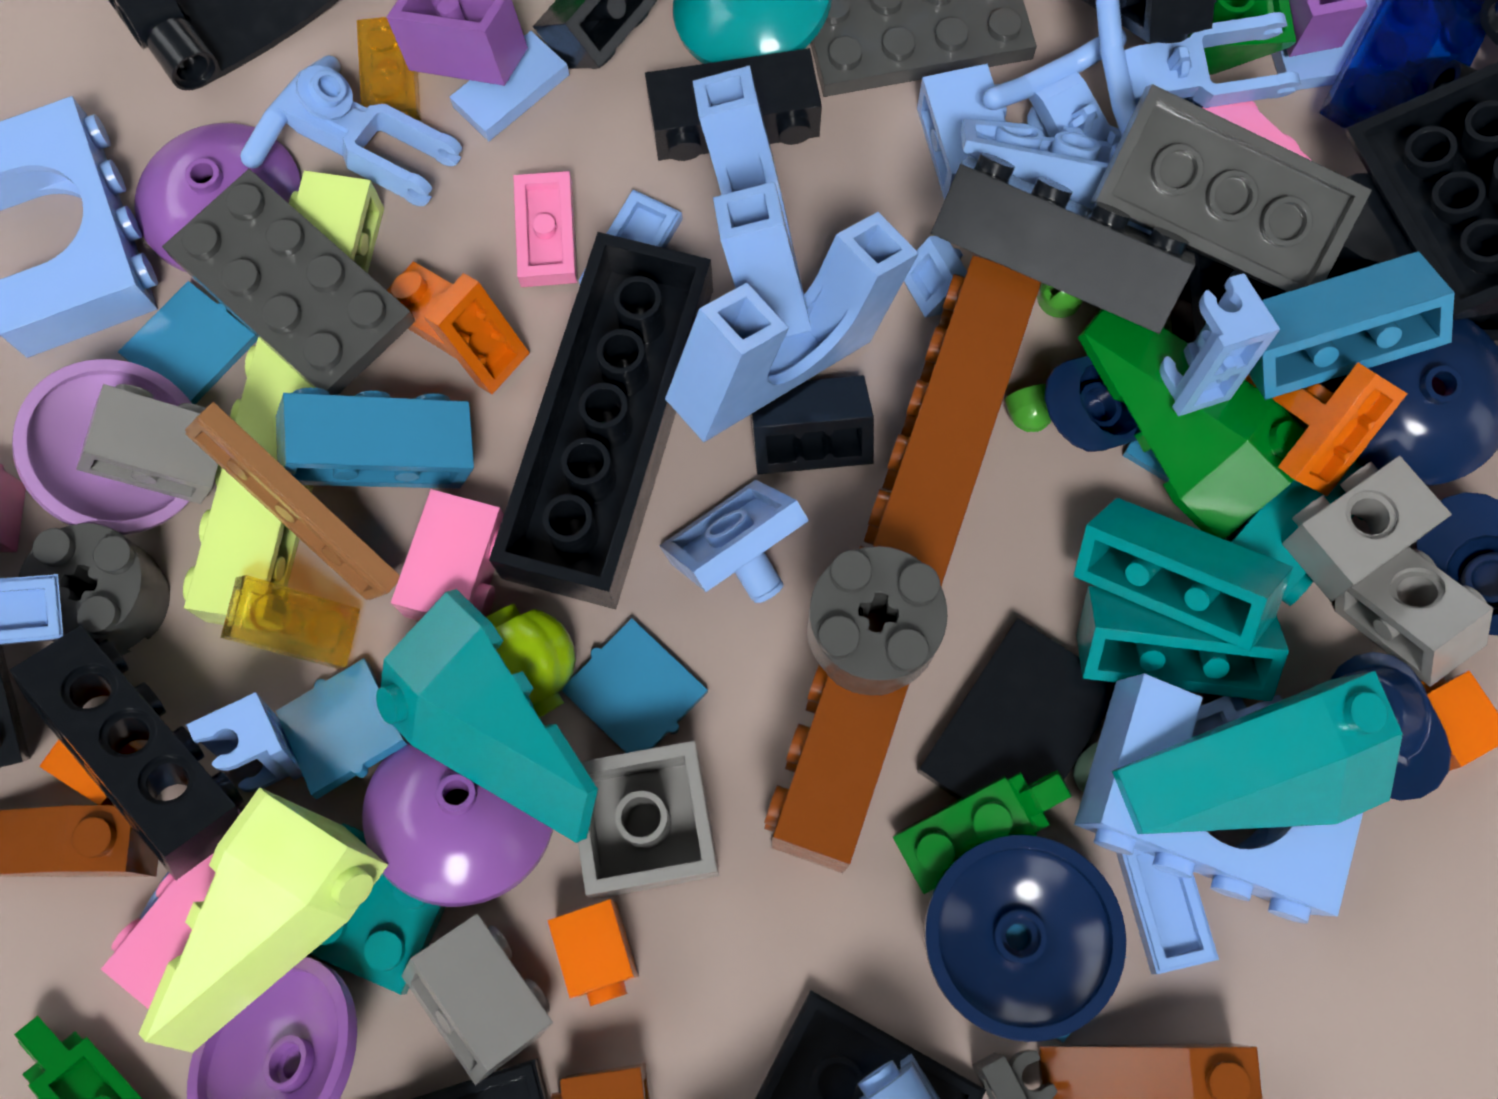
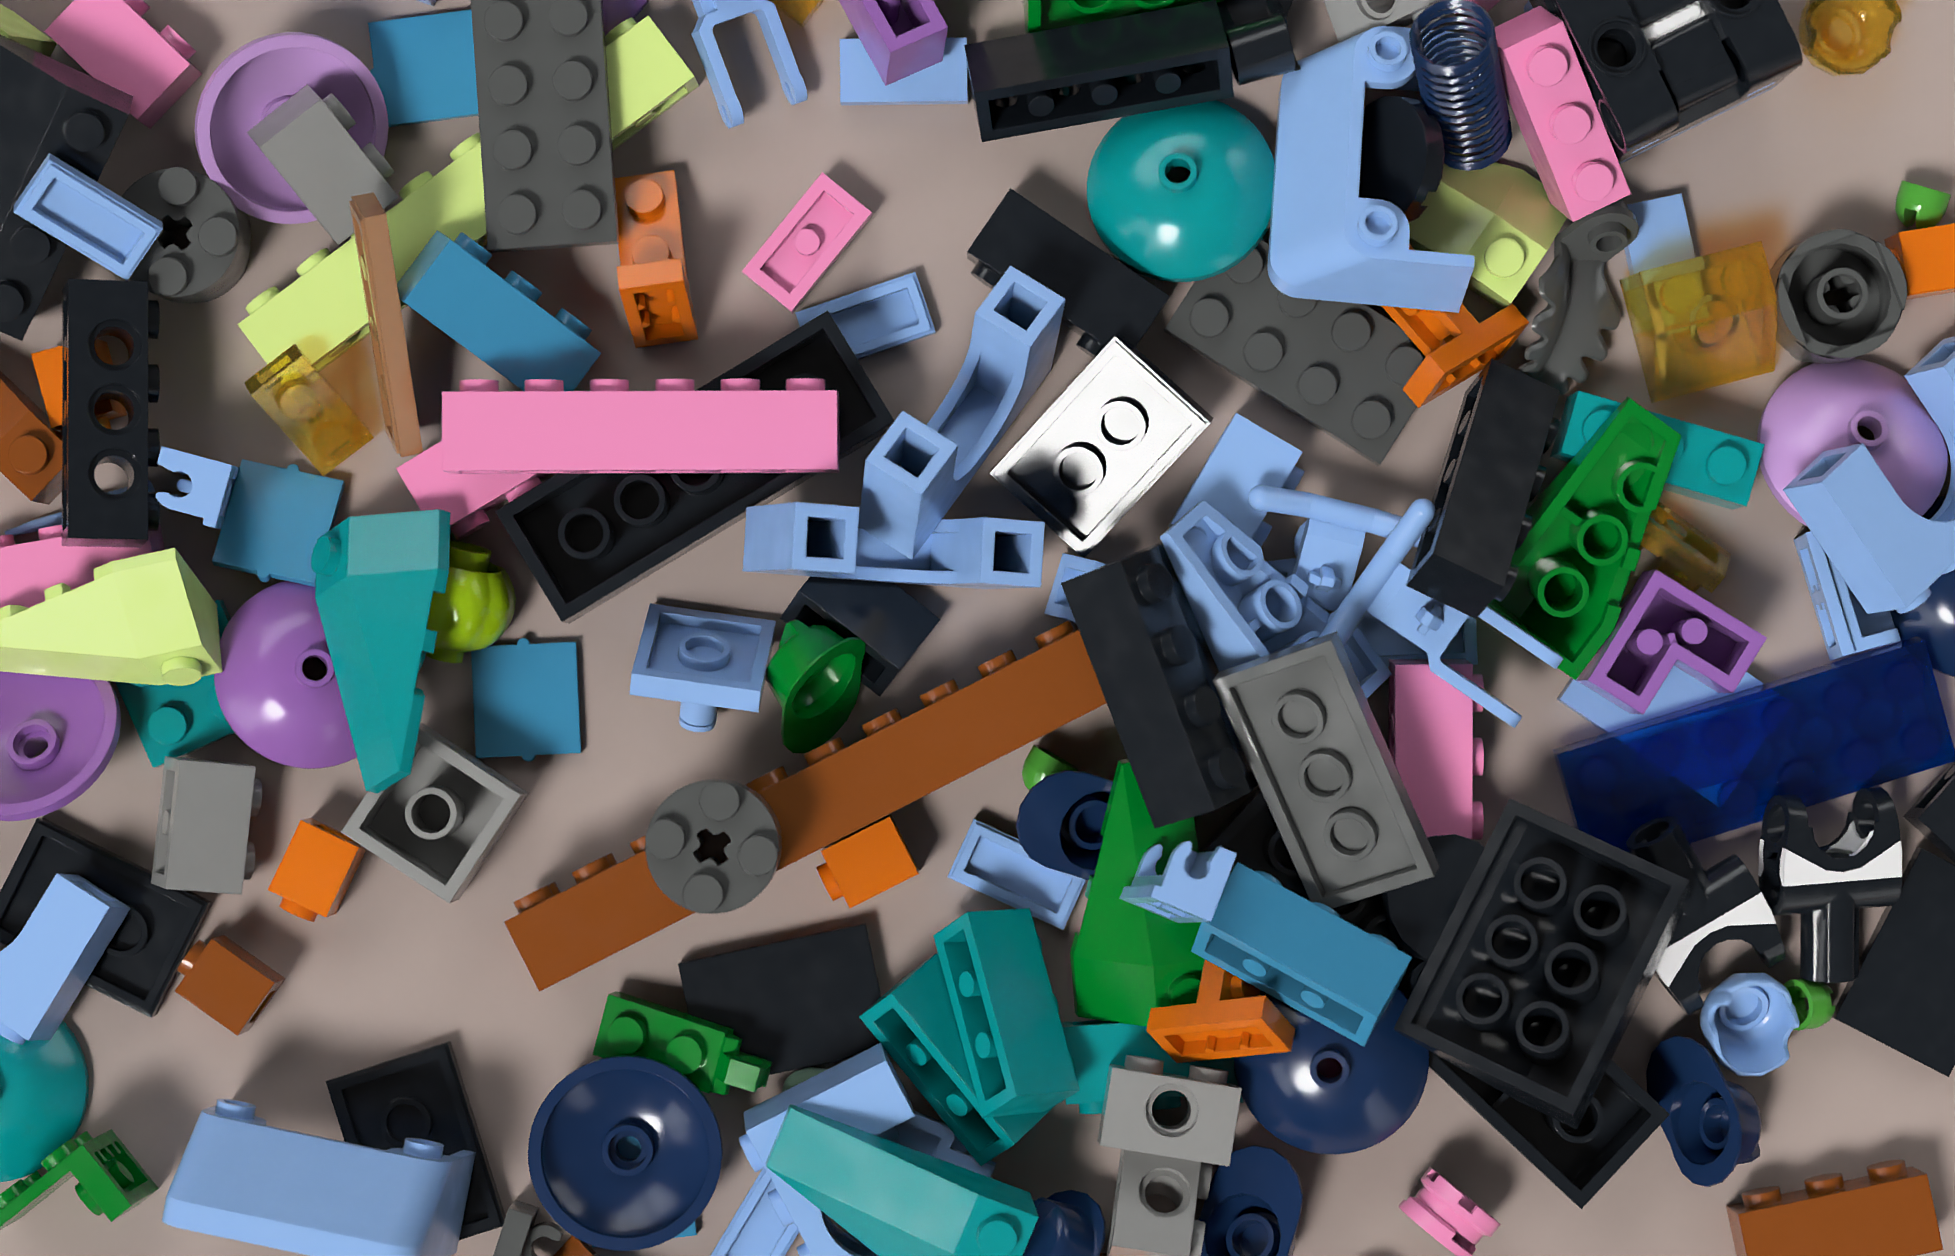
camera: 35 degrees right, 15 degrees up
(539, 405) = (640, 430): none -> bright pink brick
(822, 478) = (814, 682): none -> green piece
(855, 162) = (1101, 445): none -> tile
(979, 572) = (867, 863): none -> orange brick
(1078, 492) = (1001, 869): none -> light blue tile

